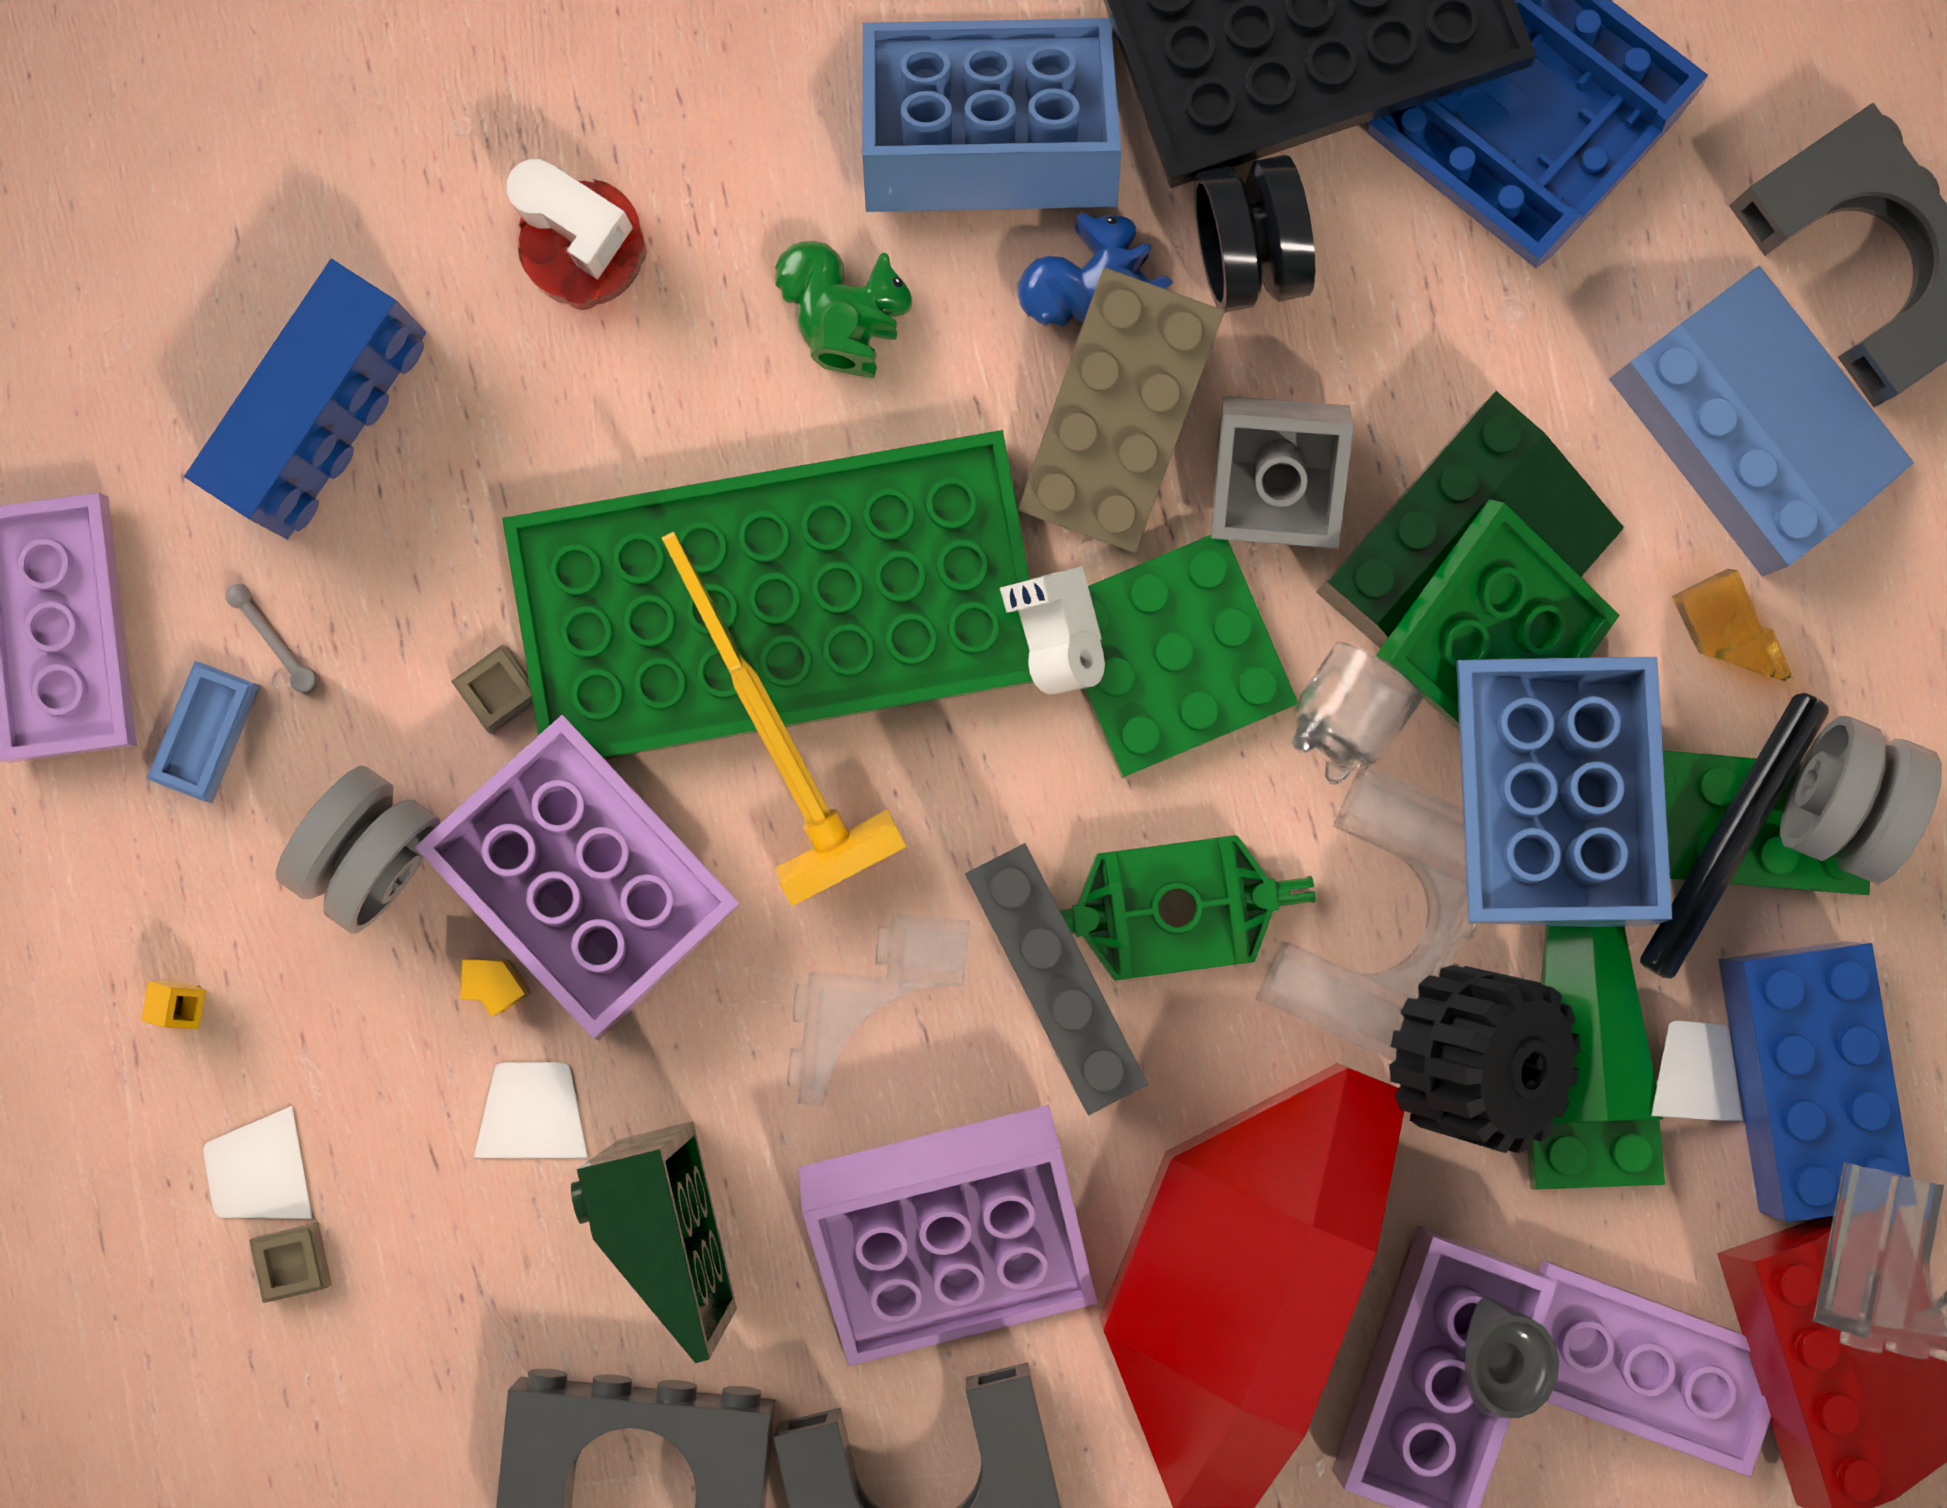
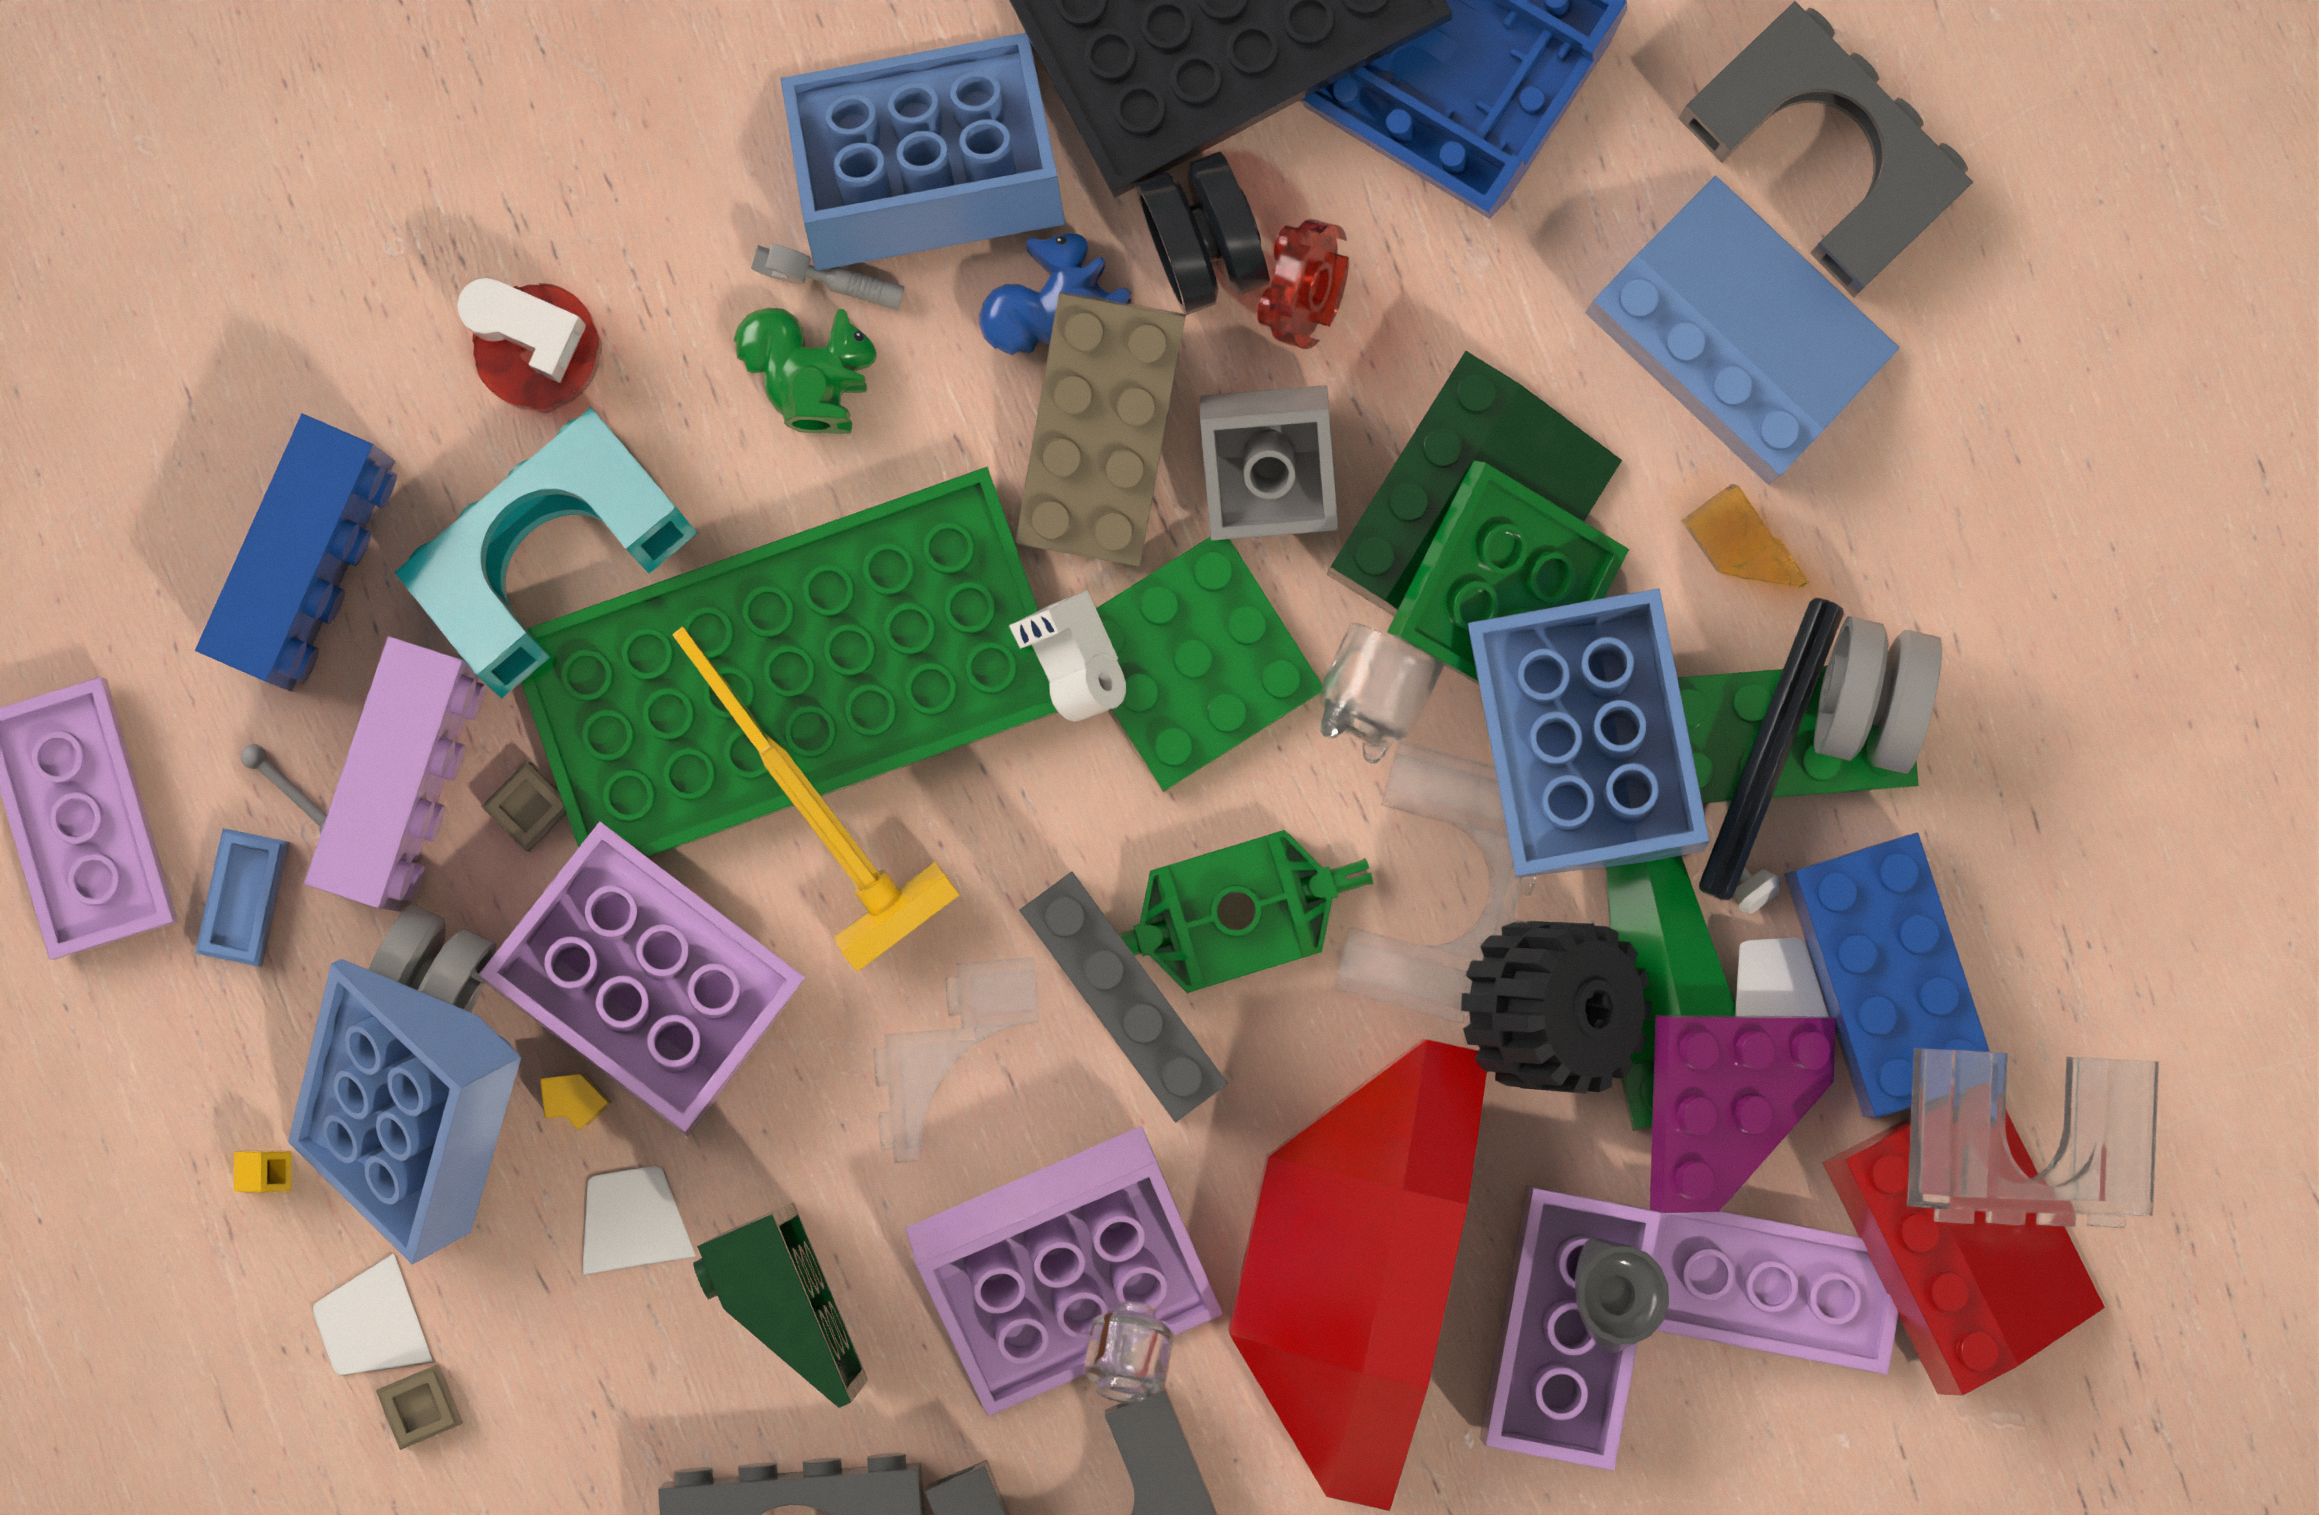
camera: 10 degrees left, 0 degrees up
(316, 966) = (402, 1107): none -> medium blue slope
(367, 637) = (395, 776): none -> lavender brick
(473, 445) = (464, 569): none -> arch
(843, 205) = (794, 266): none -> light grey piece
(1000, 1333) = (1128, 1353): none -> clear head
(1346, 299) = (1305, 282): none -> clear red plate
(1637, 1178) = (1728, 1099): none -> magenta plate
(1693, 972) = (1756, 890): none -> white rock

